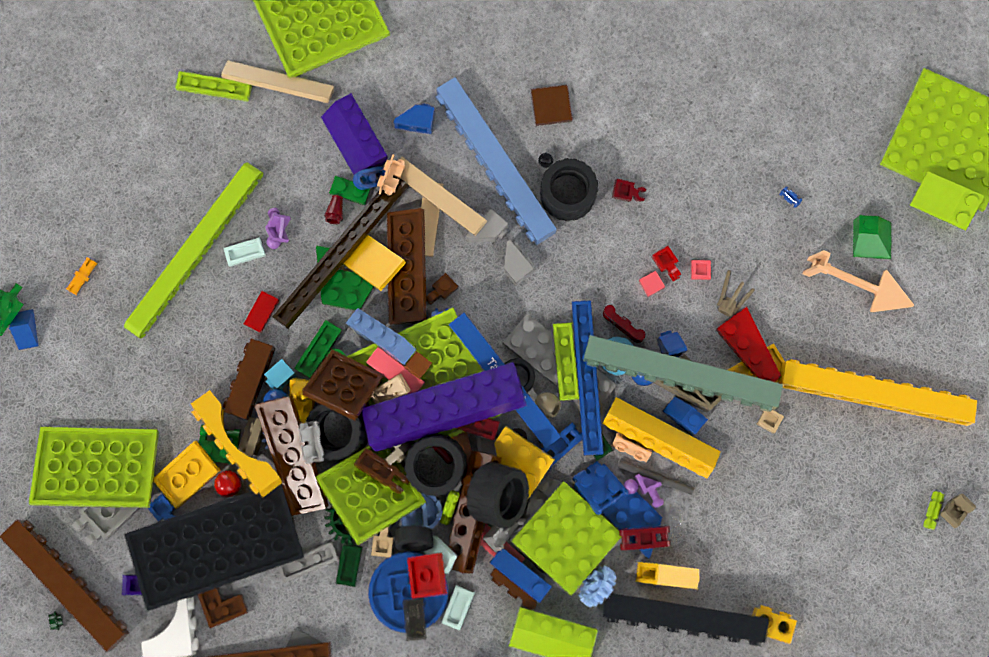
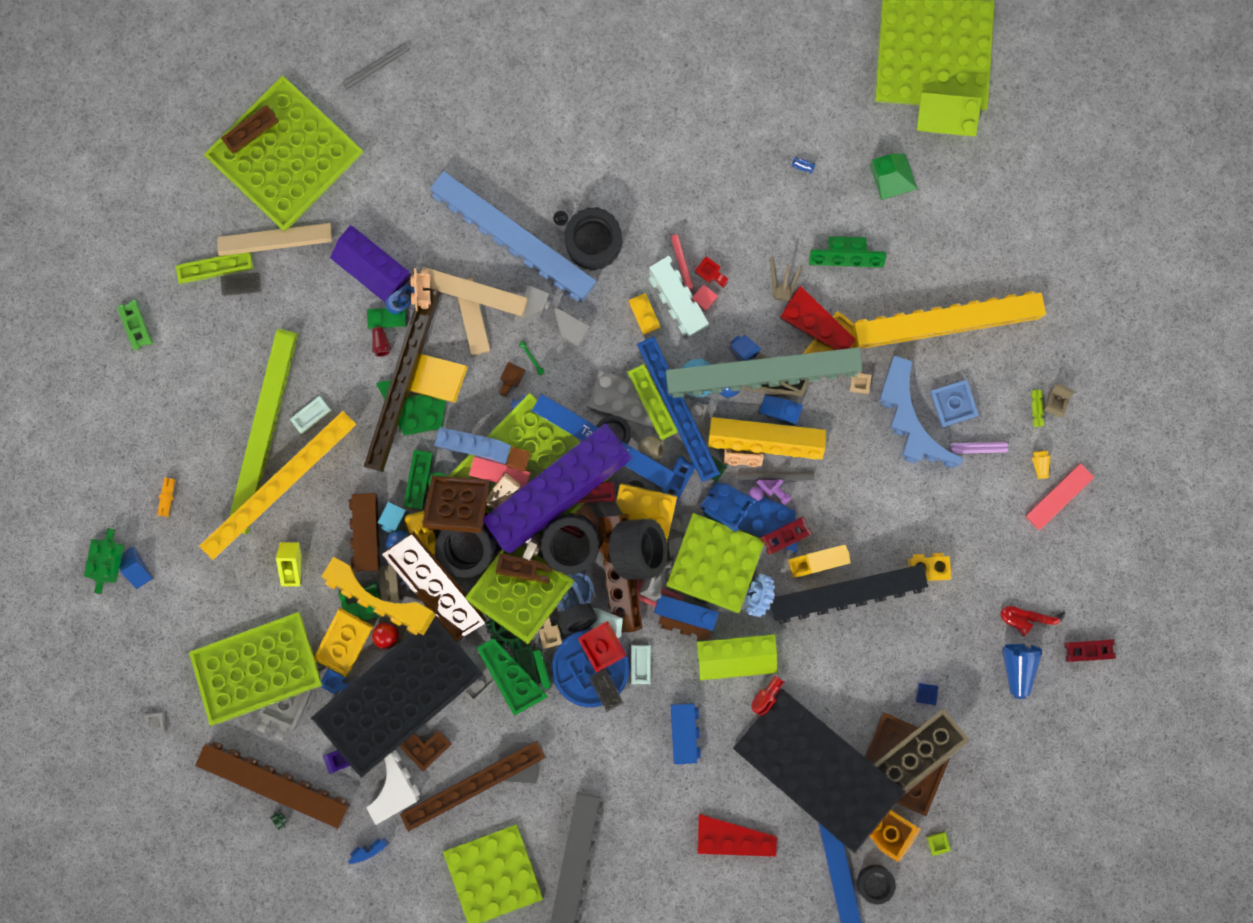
camera: 20 degrees left, 5 degrees up
(120, 110) = (134, 324): none -> bright green plate
(166, 381) = (289, 563): none -> neon yellow slope
(184, 304) = (277, 485): none -> yellow brick
(230, 110) = (240, 284): none -> clear smoke plate
(261, 312) = (350, 465): red tile -> none
(276, 228) = (331, 381): medium lavender piece -> none
(313, 451) = (444, 559): light grey hinge -> none
(329, 574) = (513, 682): none -> green wing
(362, 574) = (542, 669): none -> green tile
(408, 286) = (478, 388): reddish brown plate -> none
(417, 119) = (423, 224): blue slope -> none
(449, 507) = (598, 577): lime axle -> none
(465, 263) = (540, 371): none -> green hinge
(551, 105) = (545, 162): reddish brown tile -> none
(589, 277) = (644, 314): none -> yellow plate
(623, 324) = (692, 346): dark red plate -> none
(625, 191) = (646, 218): dark red plate -> none
(626, 273) = (677, 298): none -> light aqua wedge
(643, 243) = (681, 261): none -> coral bar
(700, 269) = (745, 267): coral tile -> none
(800, 472) = (904, 421): none -> medium blue arch
(803, 293) = (847, 252): none -> green bracket
(854, 474) = (954, 403): none -> medium blue plate
(863, 526) = (979, 447): none -> lavender axle
(887, 294) = (925, 222): light nougat piece -> none
(919, 565) = (1041, 463): none -> yellow cone
(925, 604) = (1059, 496): none -> coral tile

